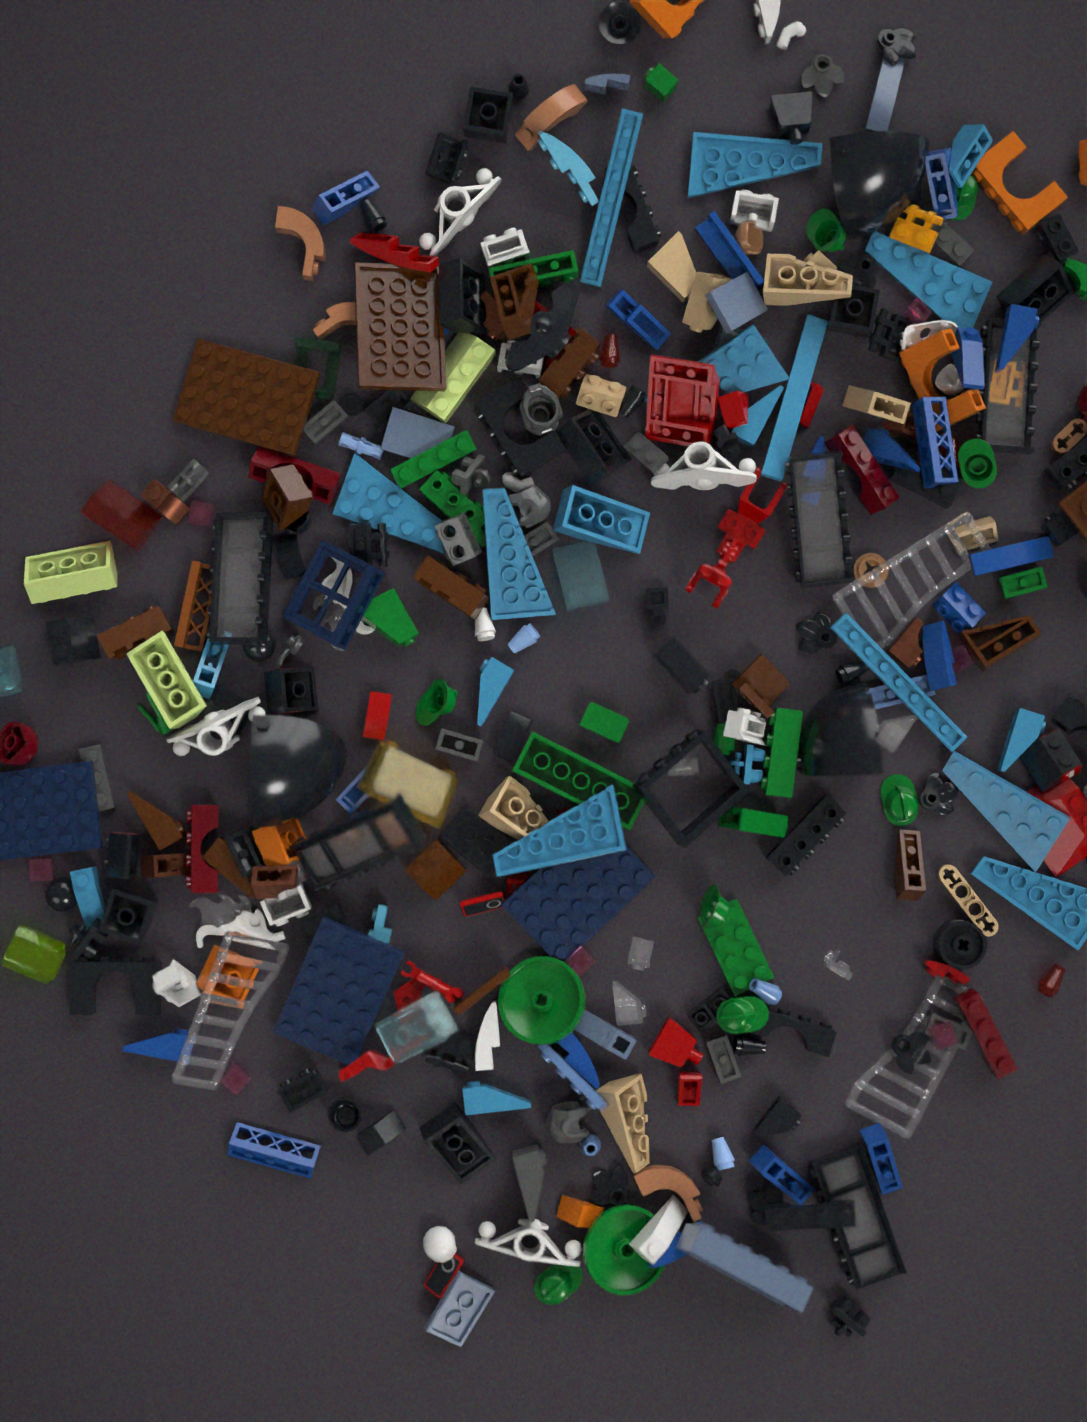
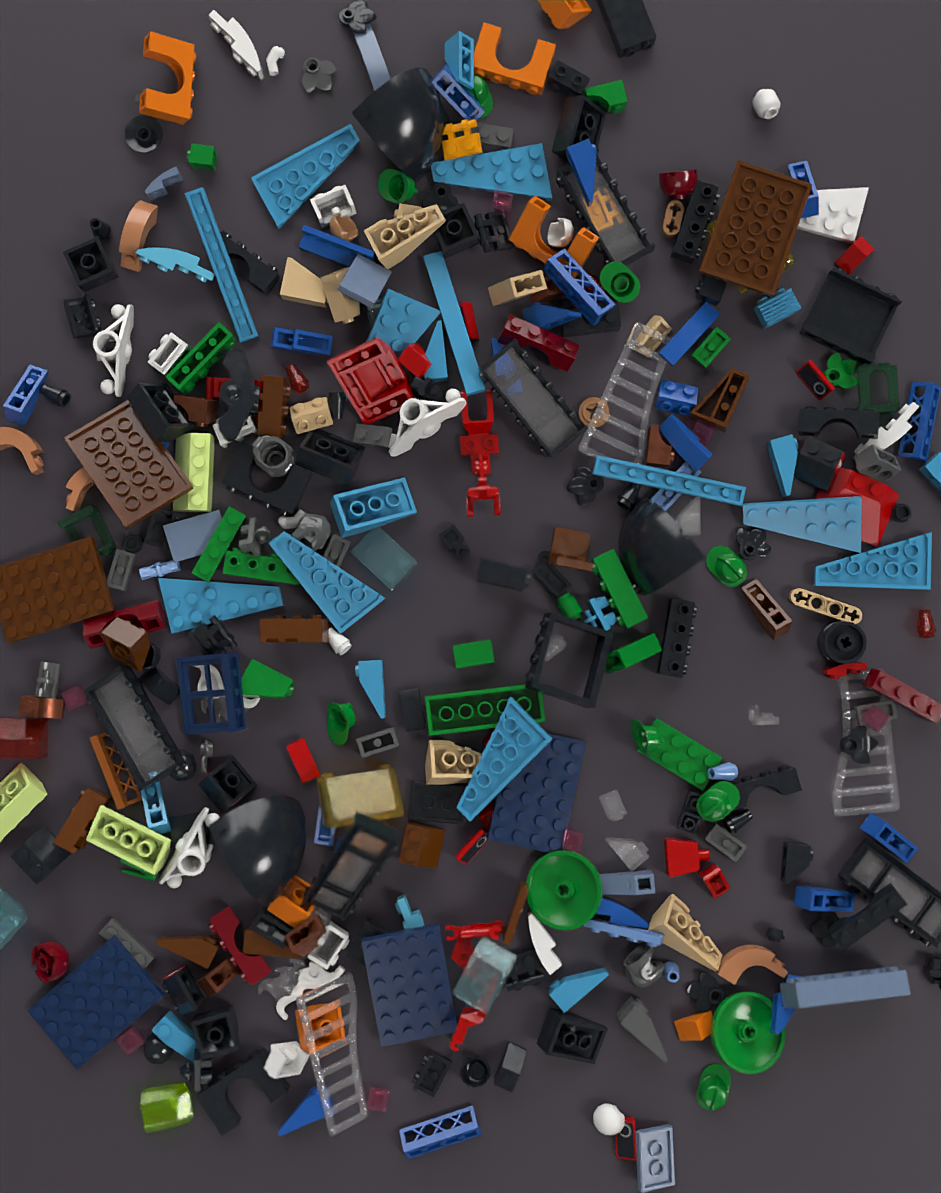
camera: 30 degrees left, 0 degrees up
(388, 249) = (82, 411): red slope -> none
(463, 537) = (278, 587): dark grey brick -> none
(488, 1230) = (676, 1085): white piece -> none
(515, 299) = (199, 386): reddish brown wedge -> none
(524, 638) = (373, 631): light blue cone -> none
(660, 1230) = (764, 1001): white slope -> none
(721, 1154) = (771, 913): light blue cone -> none
(745, 726) = (578, 588): white window -> none
(792, 114) = (314, 117): black torso -> none
(912, 332) = (509, 220): white piece -> none
(969, 358) = (563, 208): slope -> none

